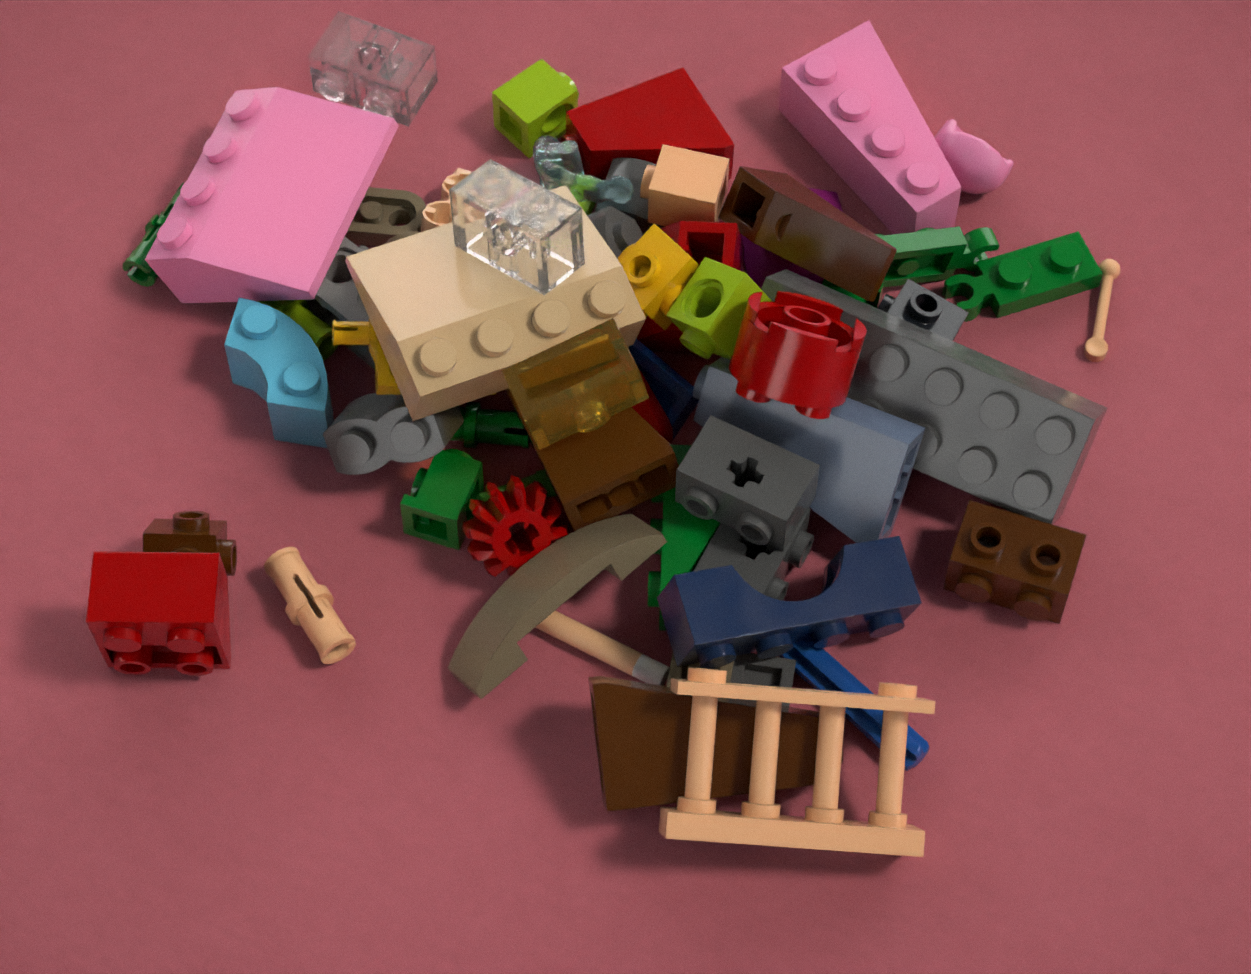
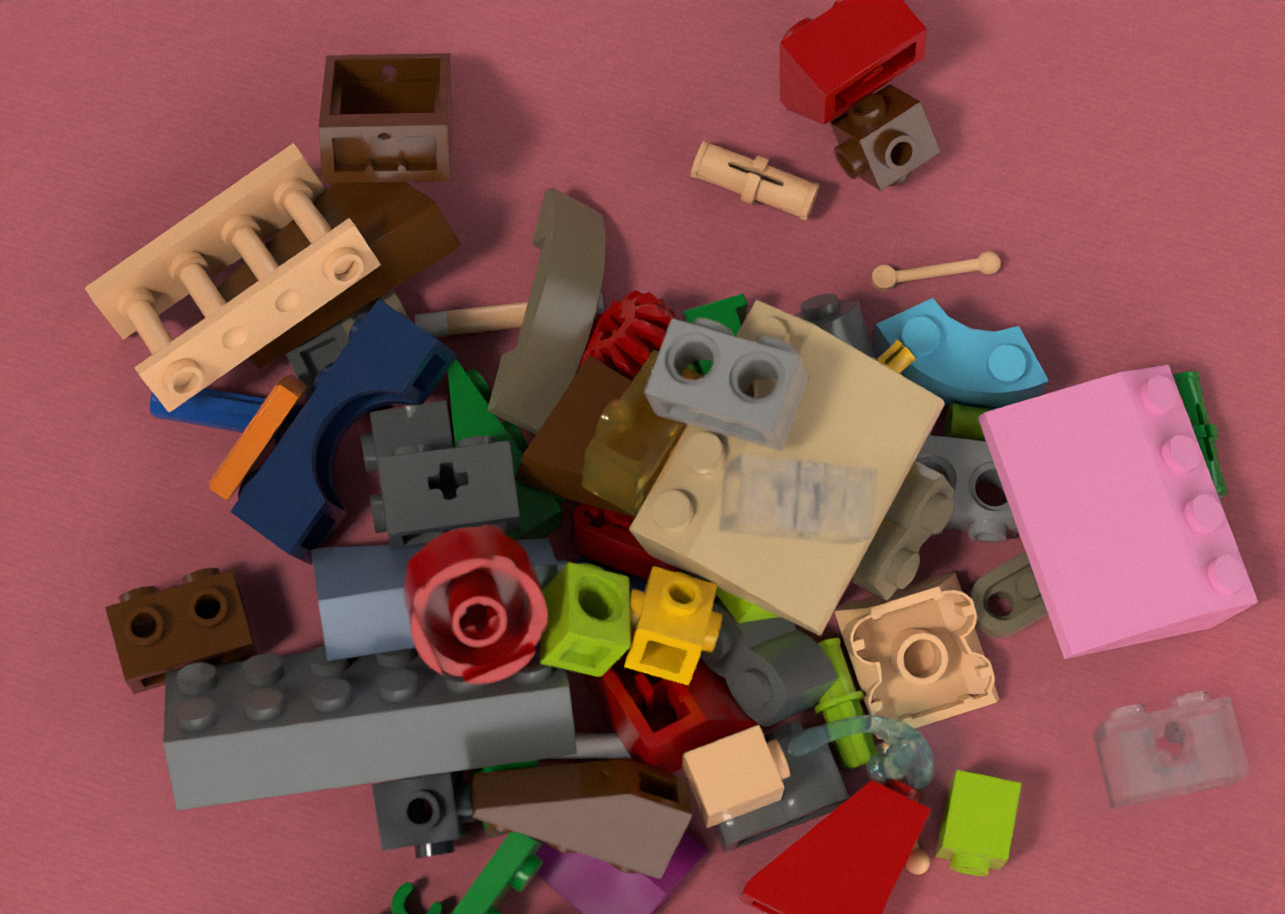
camera: 140 degrees right, 15 degrees up
(275, 482) = (885, 277): none -> light nougat hinge
(515, 315) = (719, 398): none -> light grey brick
(600, 763) = (407, 106): none -> reddish brown window
(858, 645) = (257, 436): none -> orange tile

